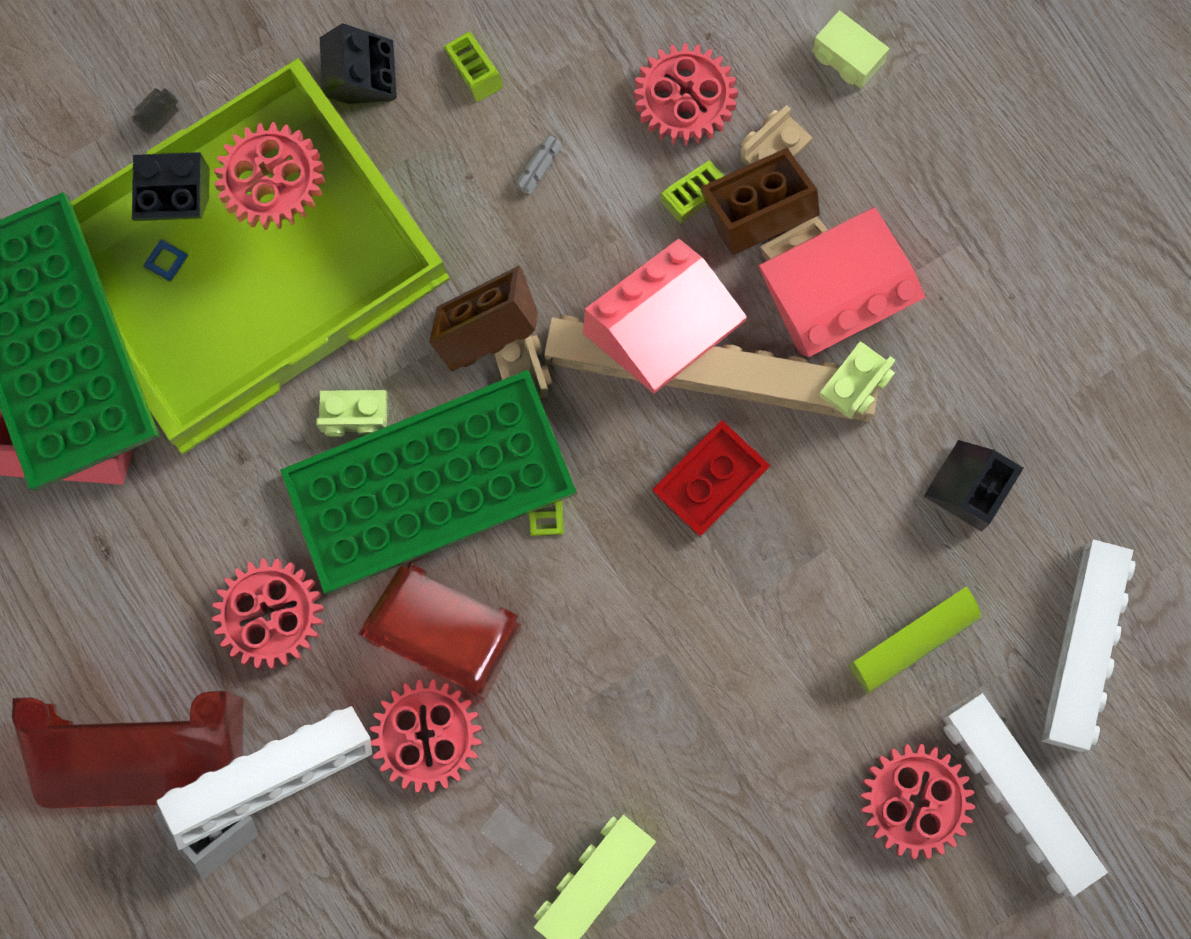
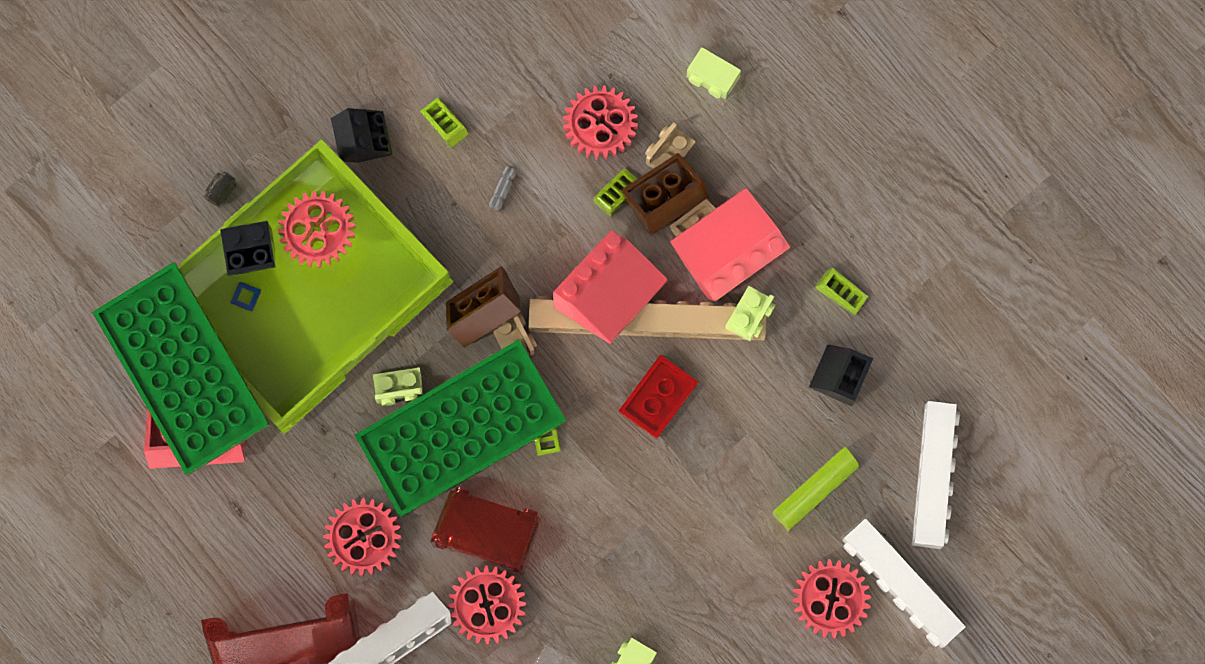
camera: 10 degrees left, 0 degrees up
(980, 377) = (837, 297): none -> lime slope

